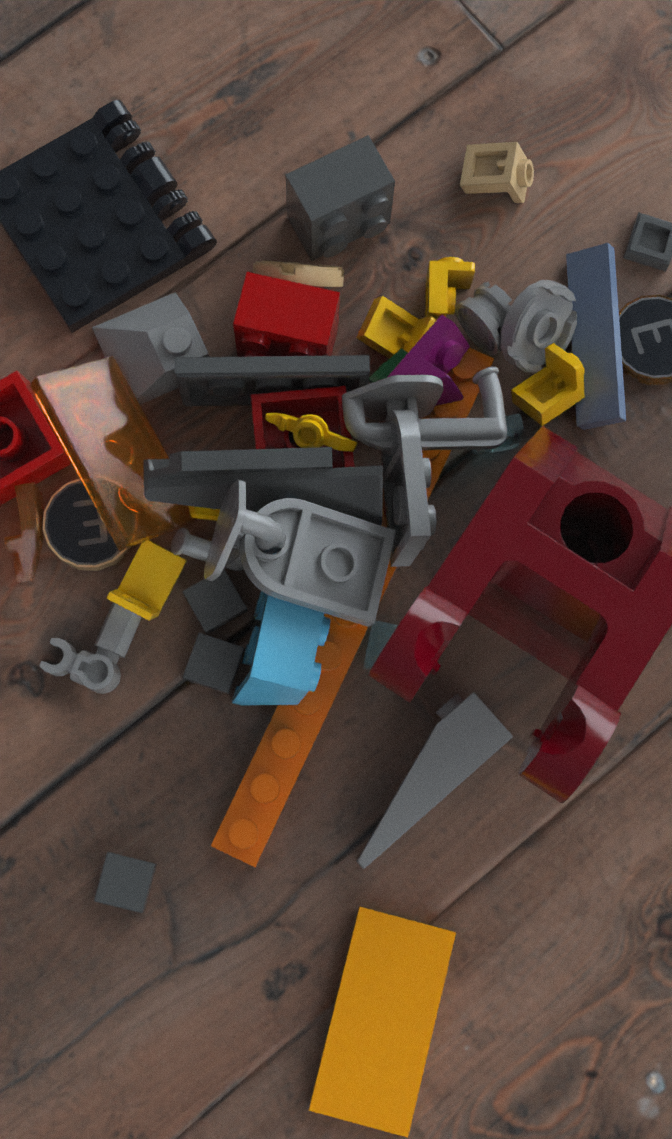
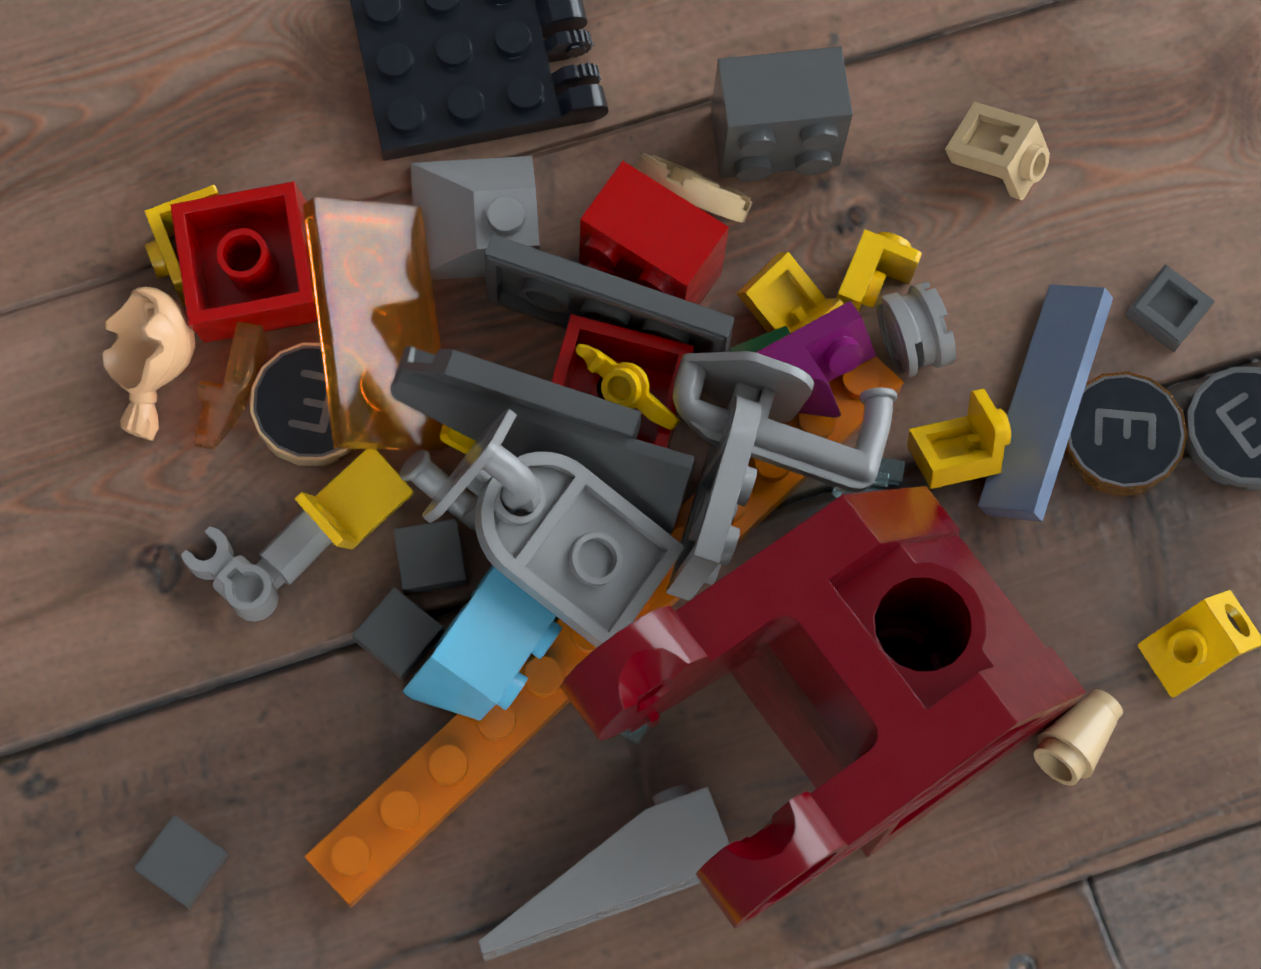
camera: 20 degrees right, 5 degrees down
(536, 320) = (969, 352): light grey tile -> none

